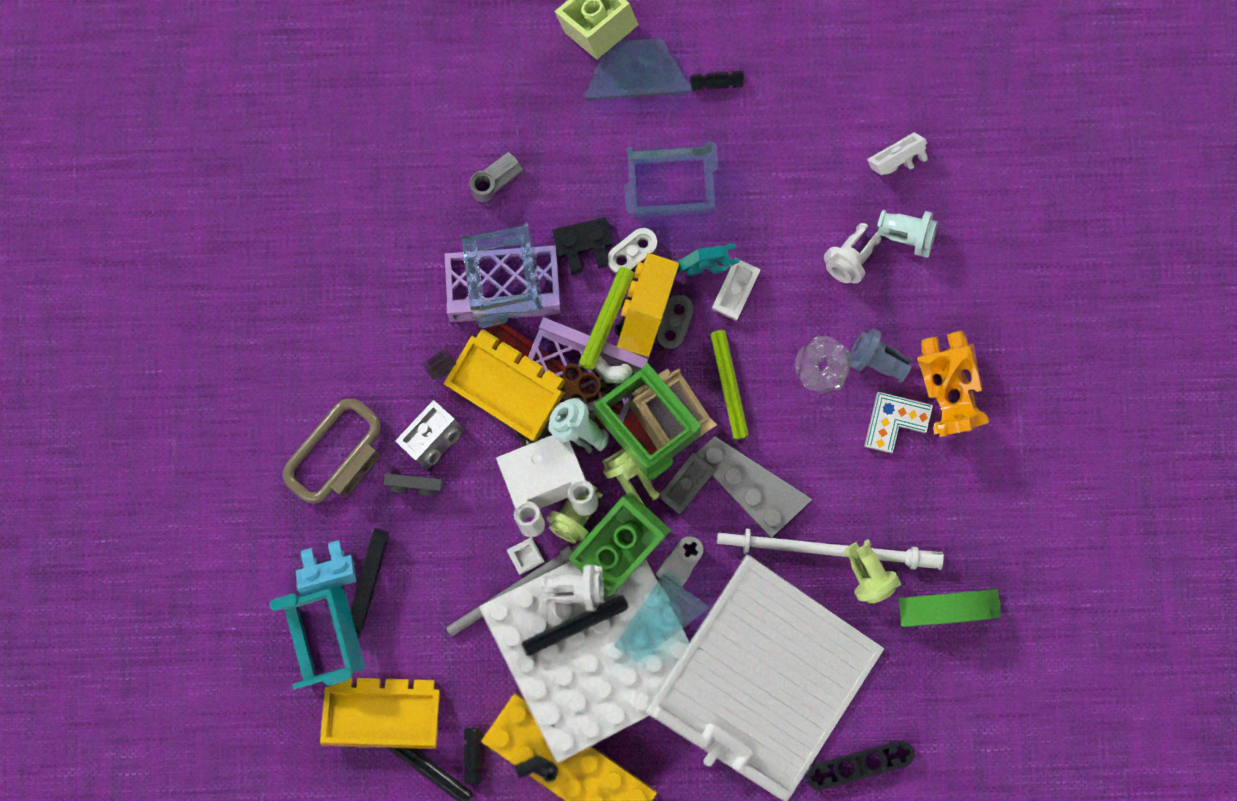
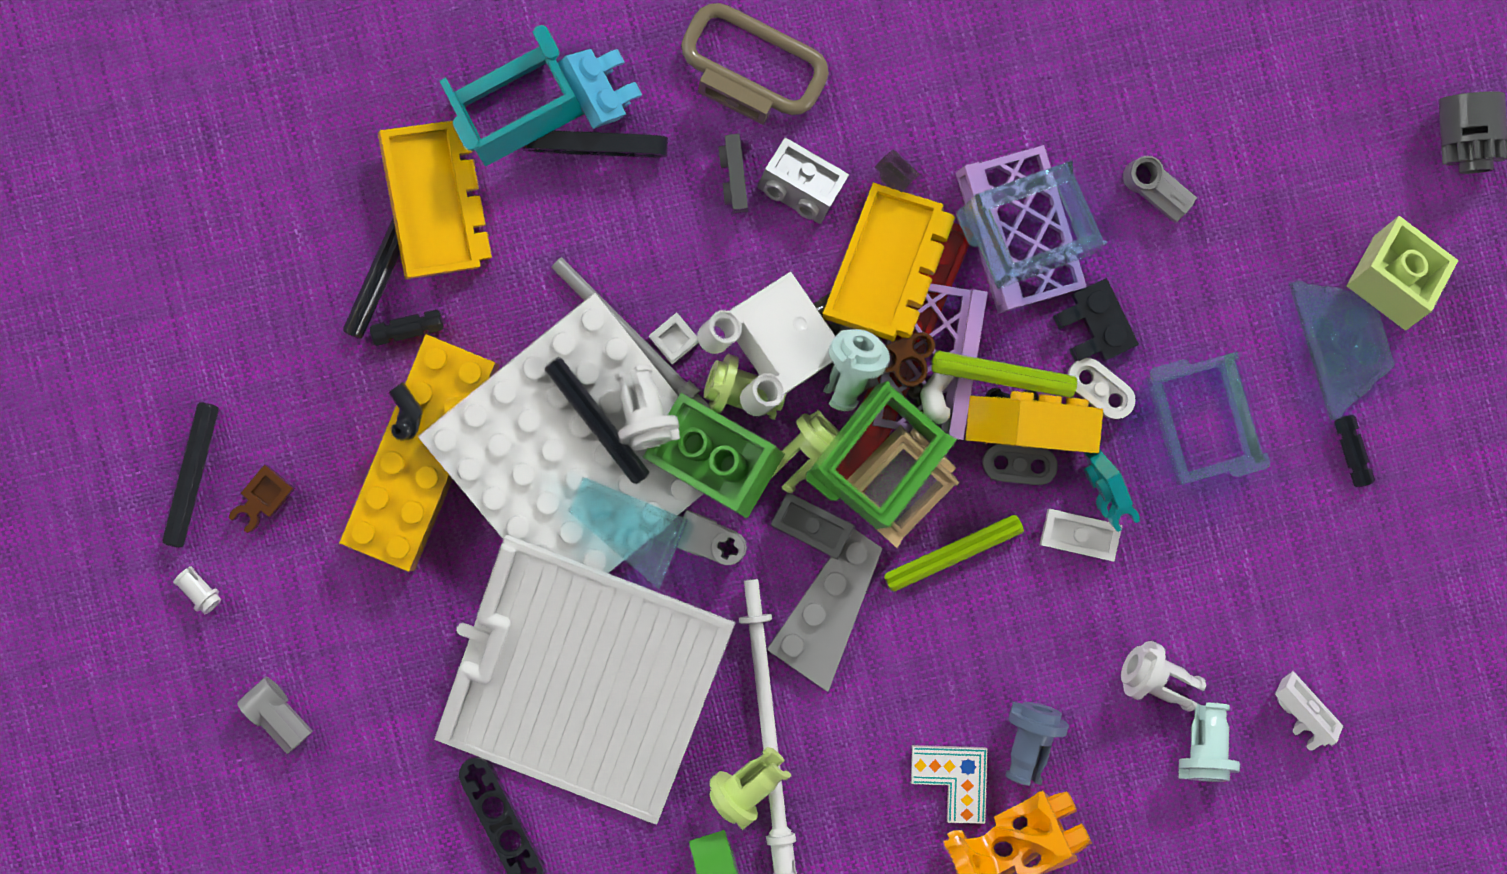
camera: 80 degrees right, 5 degrees up
(837, 368) = (1001, 688): clear plate -> none

